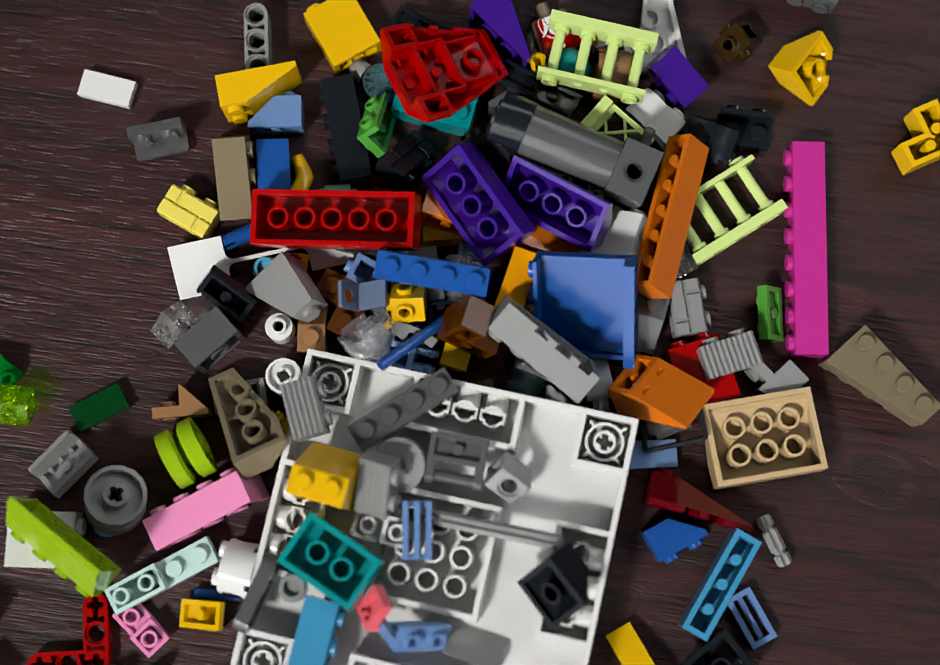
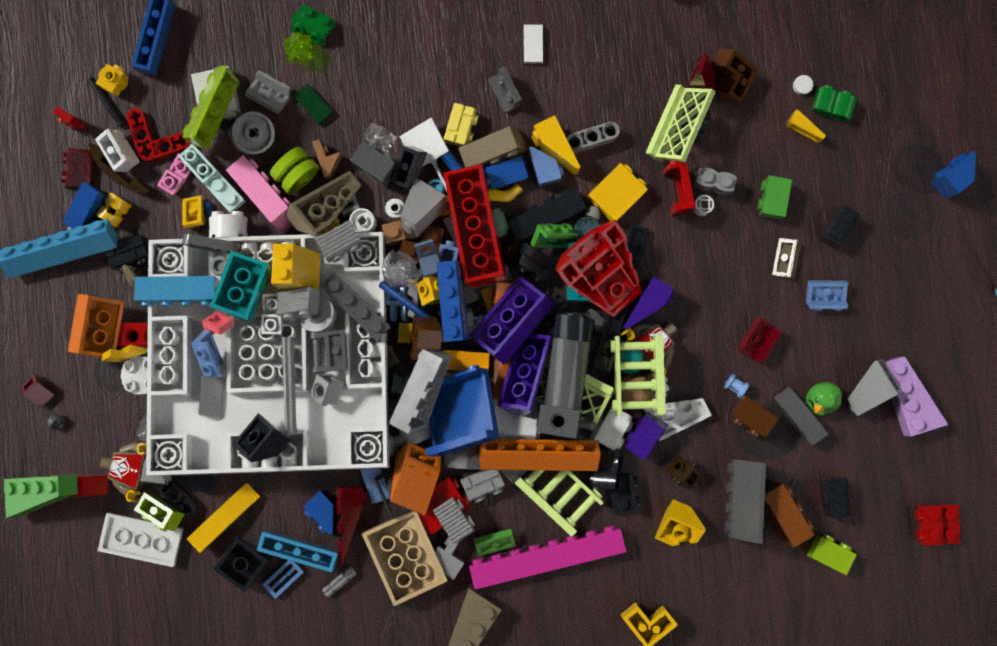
camera: 80 degrees right, 5 degrees up
(428, 530) = (258, 341): medium blue tile -> none

